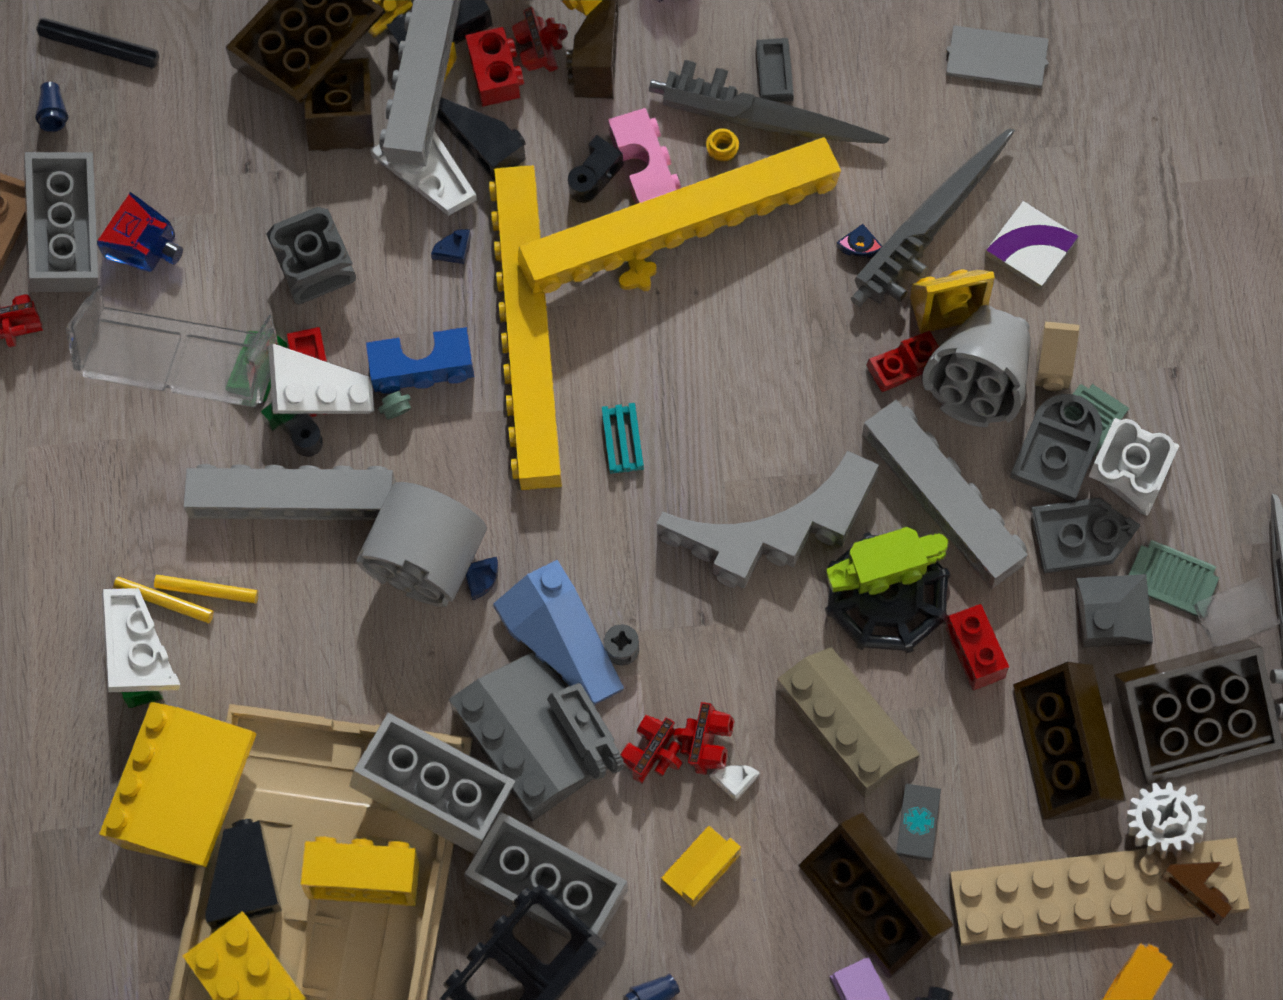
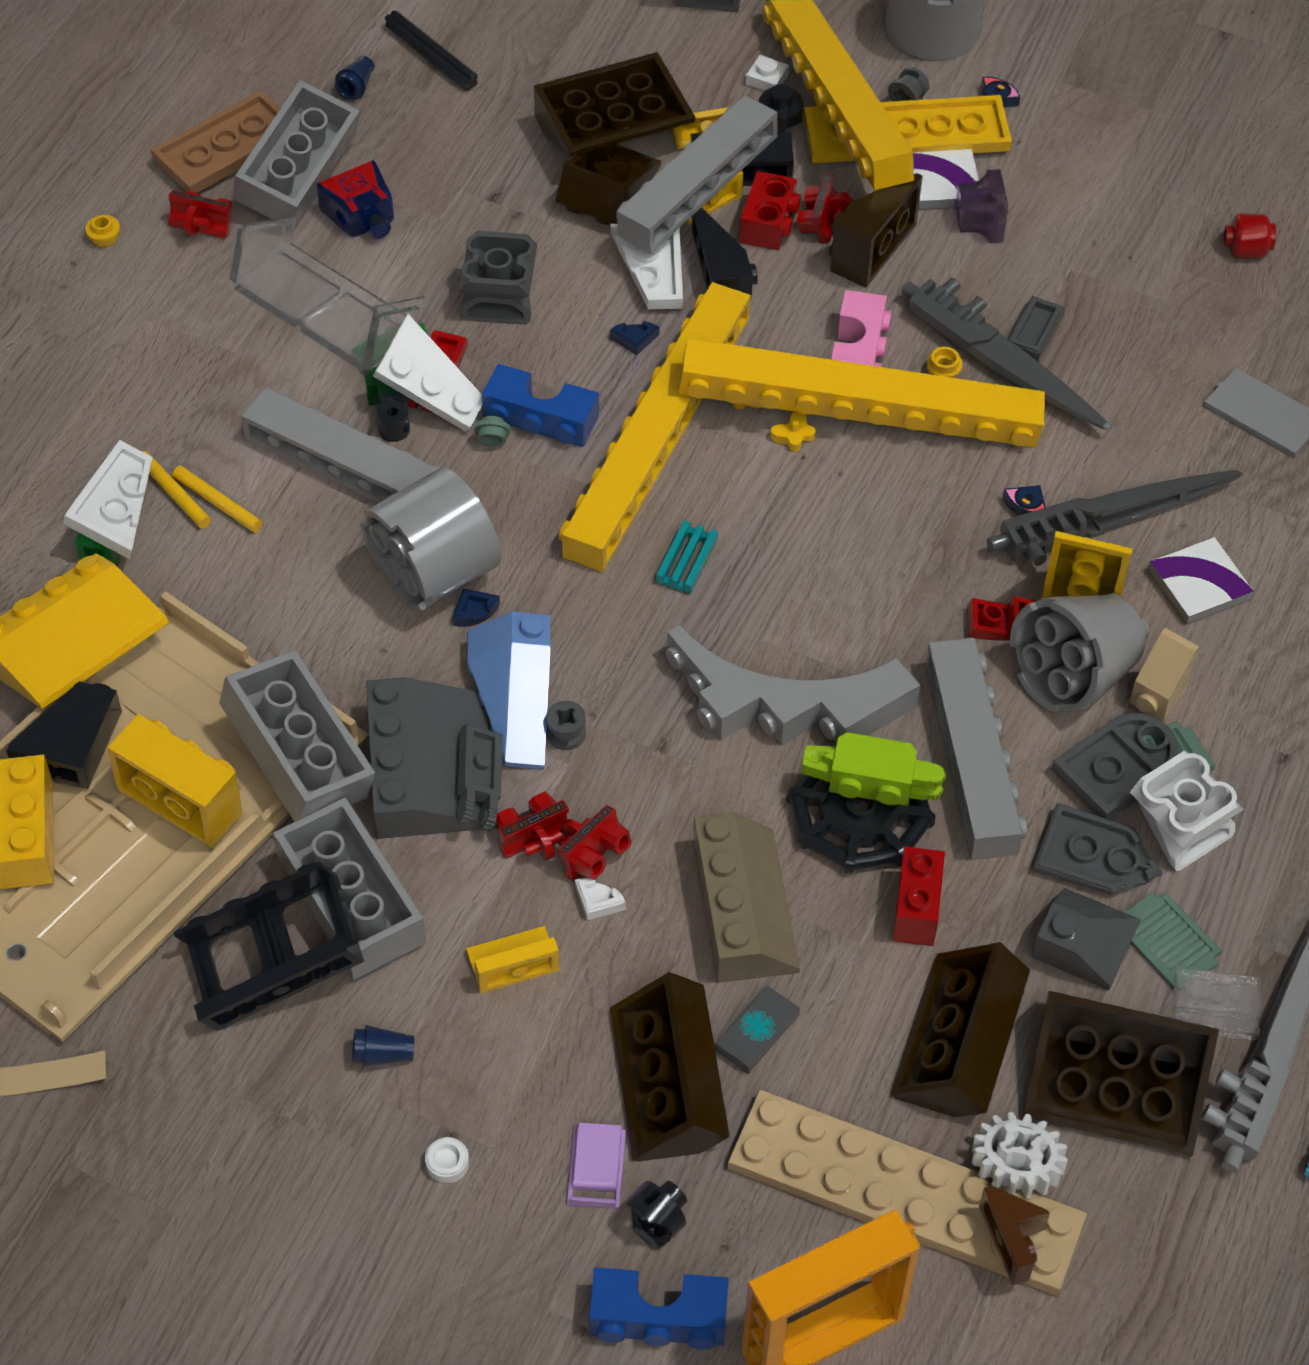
camera: 25 degrees right, 15 degrees down
(596, 172) = (808, 330): black leg -> none

